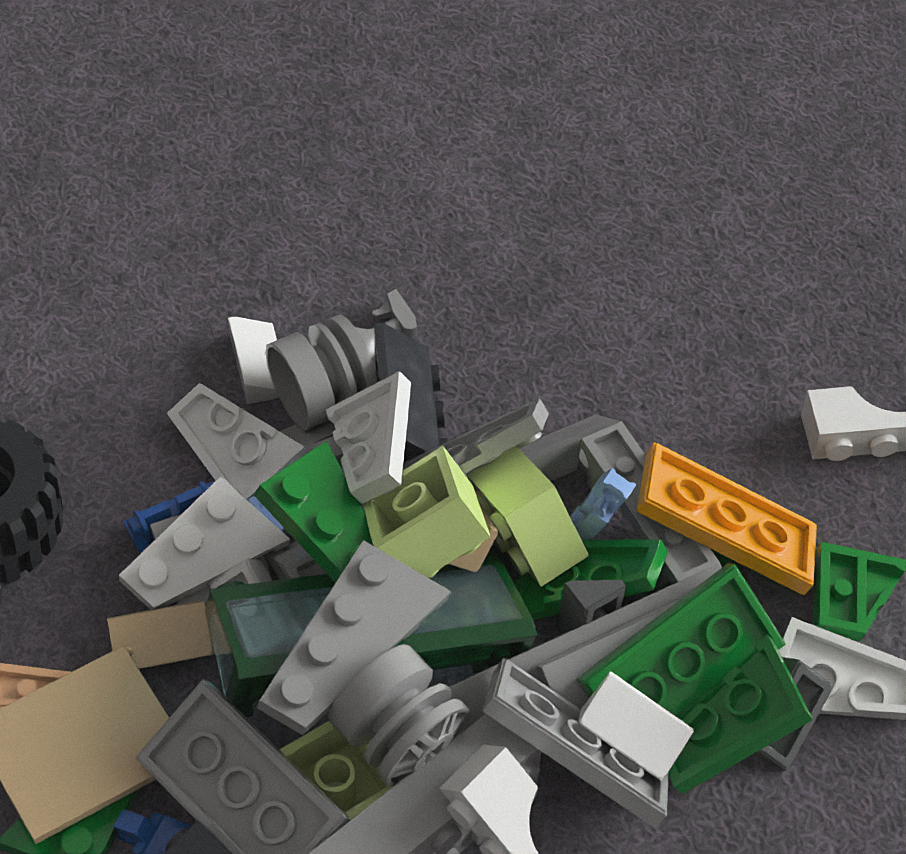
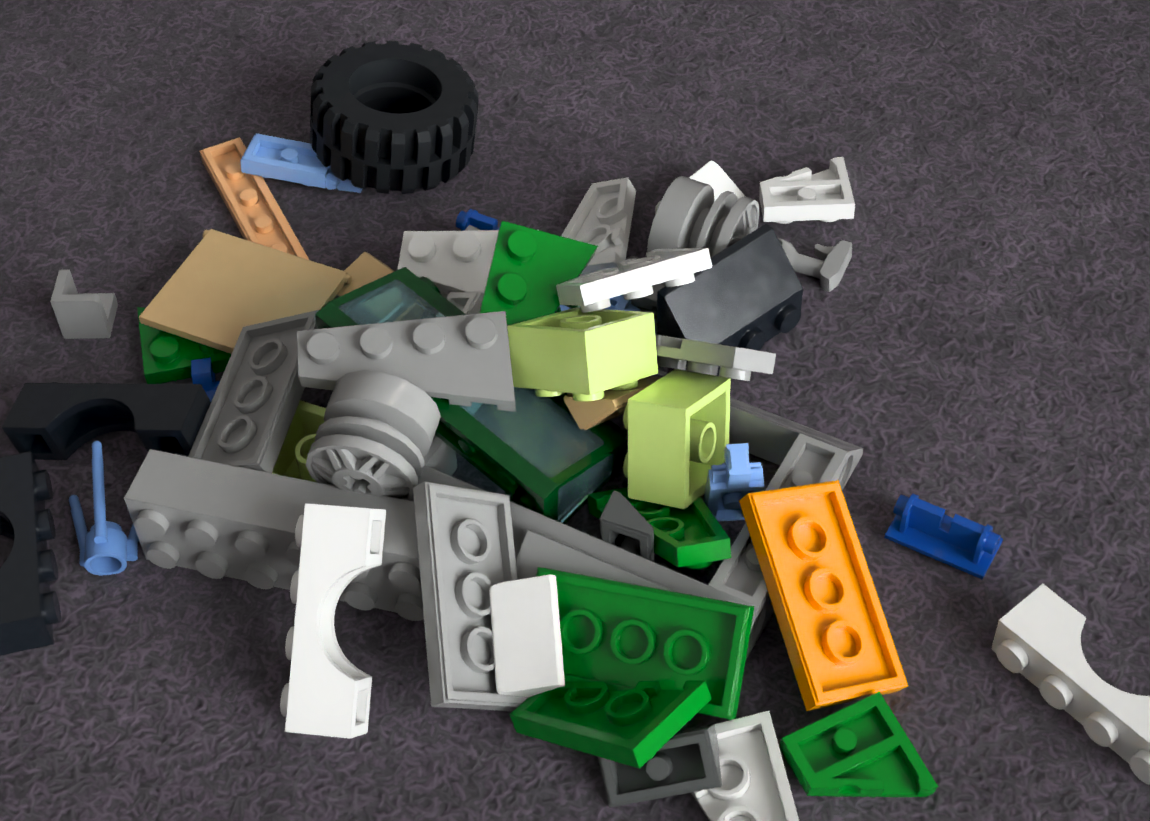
camera: 60 degrees right, 5 degrees down
(314, 281) = (808, 197): none -> white wing
(709, 420) = (943, 538): none -> blue hinge

